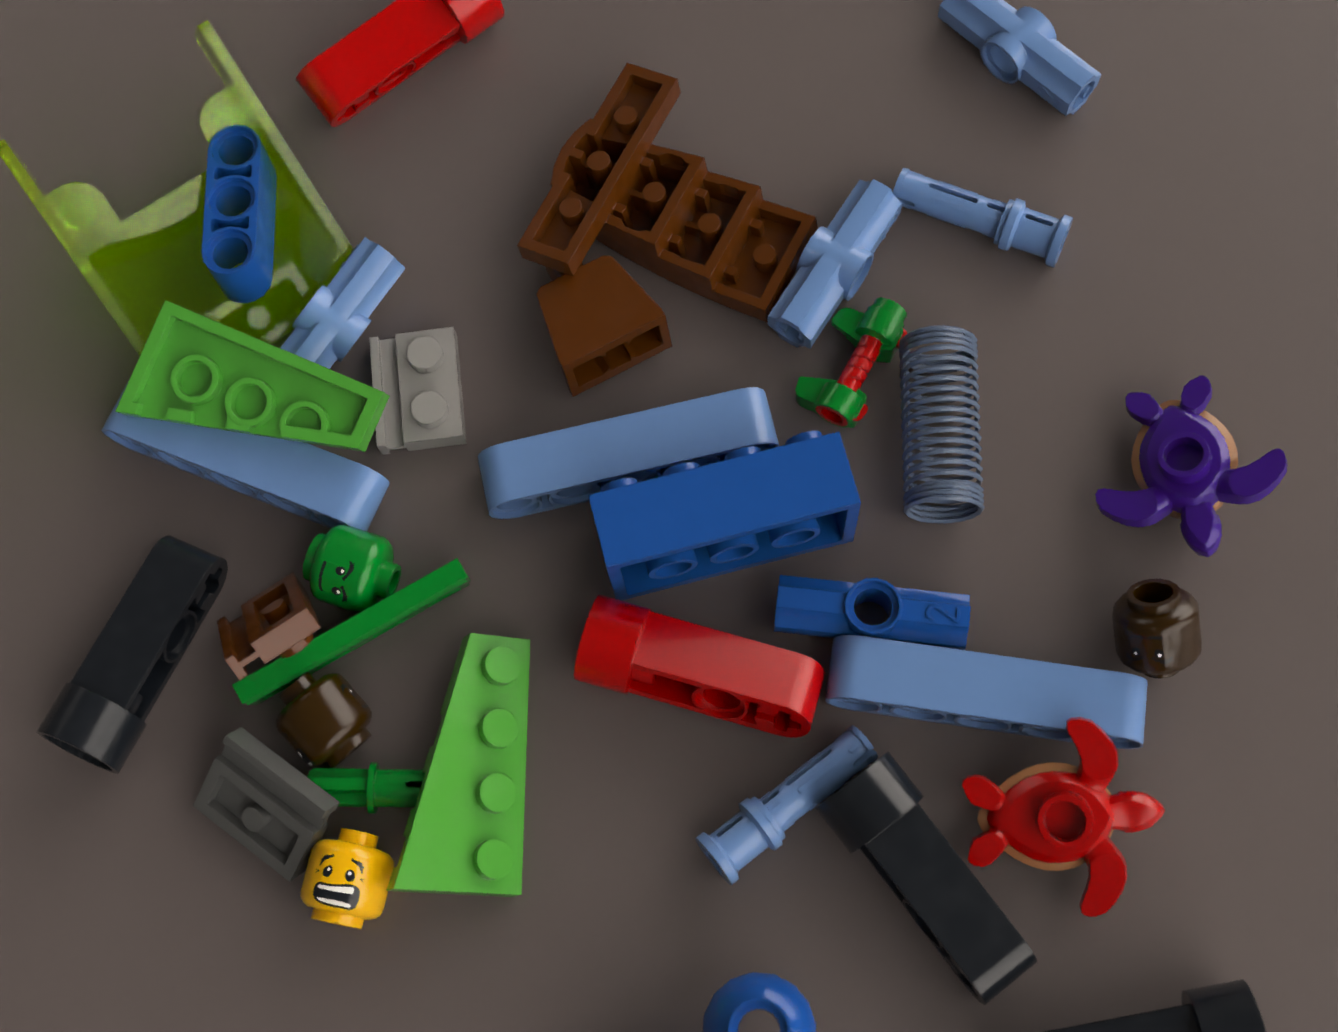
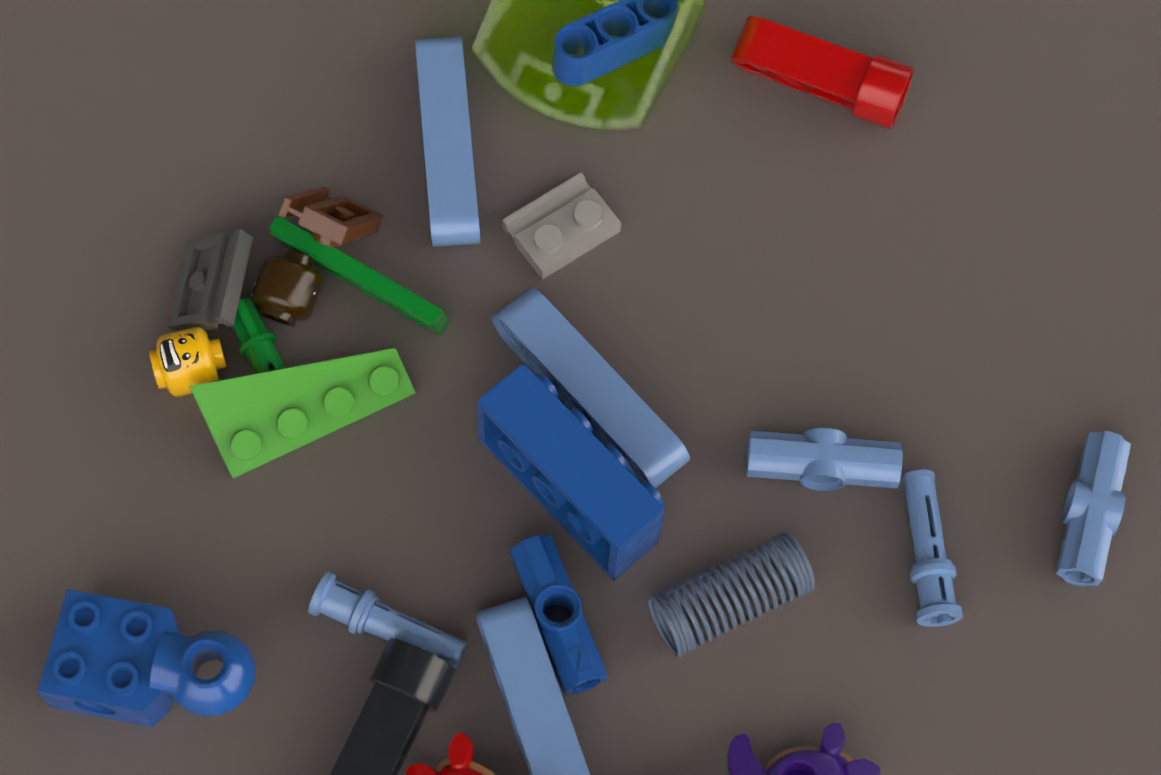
camera: 50 degrees right, 5 degrees down
(135, 655) = (273, 147): black beam -> none
(233, 382) = (489, 101): bright green wing -> none
(342, 309) = (574, 141): medium blue piece -> none
(351, 568) = (402, 248): green head -> none
(600, 322) = (676, 313): reddish brown torso -> none
(663, 206) = (796, 313): reddish brown slope -> none
(698, 668) = (450, 509): red beam -> none
(875, 339) = (781, 515): green piece -> none

